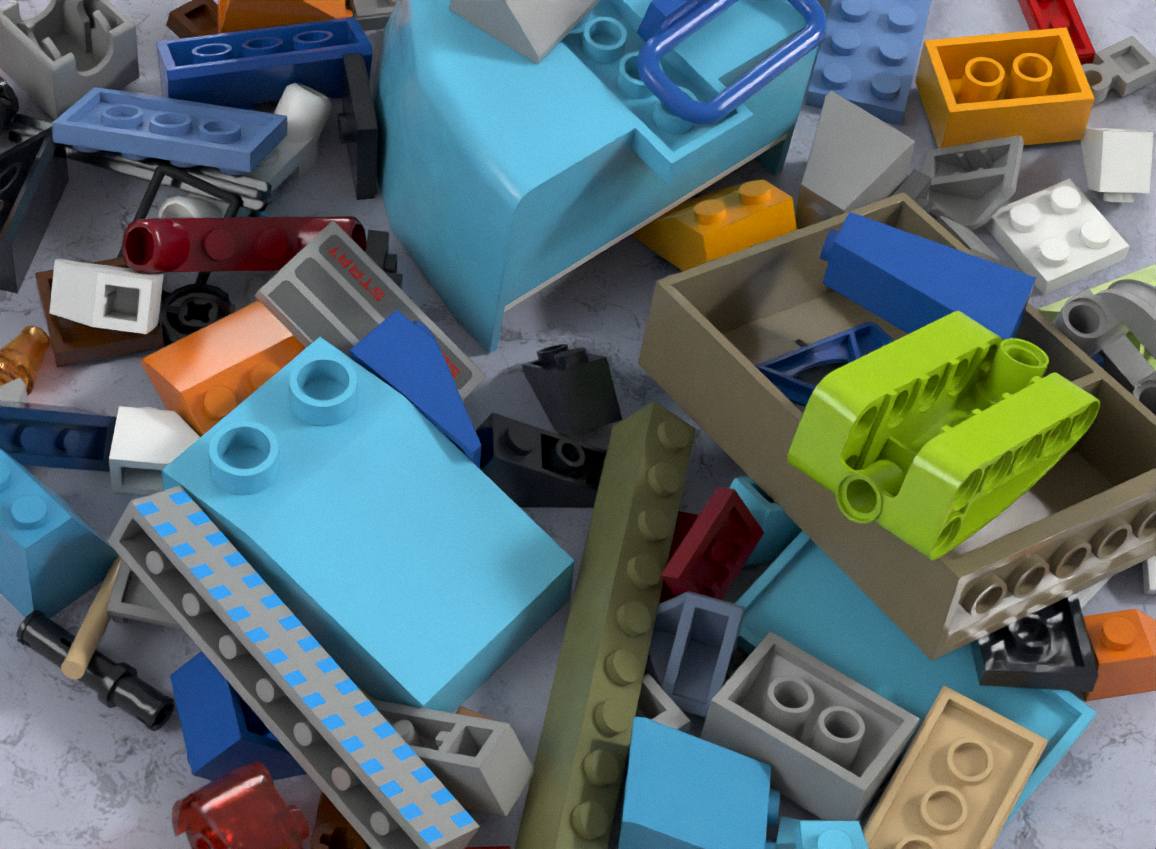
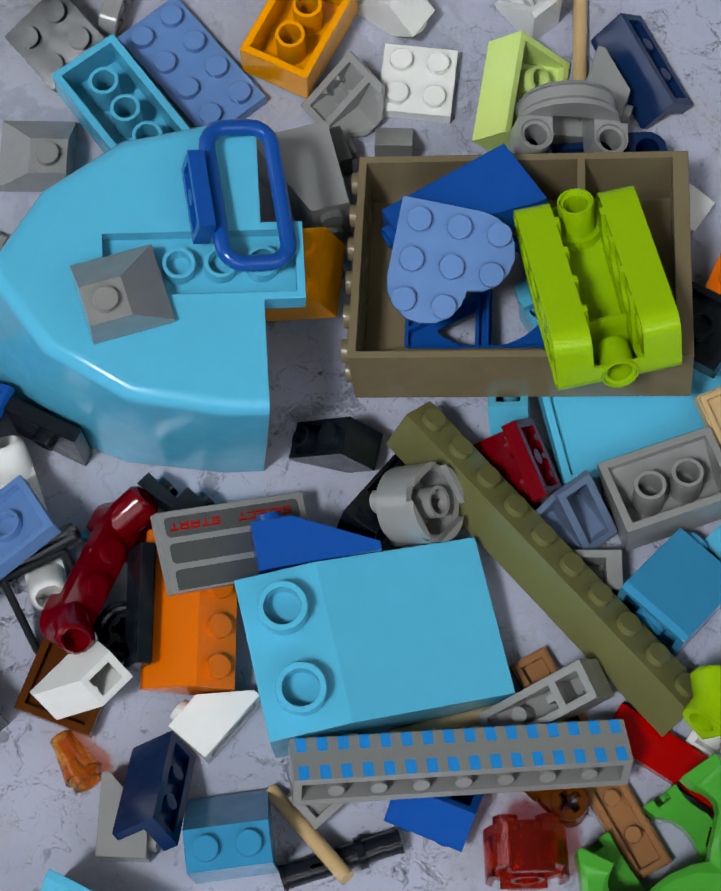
camera: 45 degrees left, 20 degrees up
(215, 304) = (139, 606): none -> black tile
(557, 446) = (418, 504): none -> light grey brick
(843, 287) = (442, 256): none -> medium blue plate

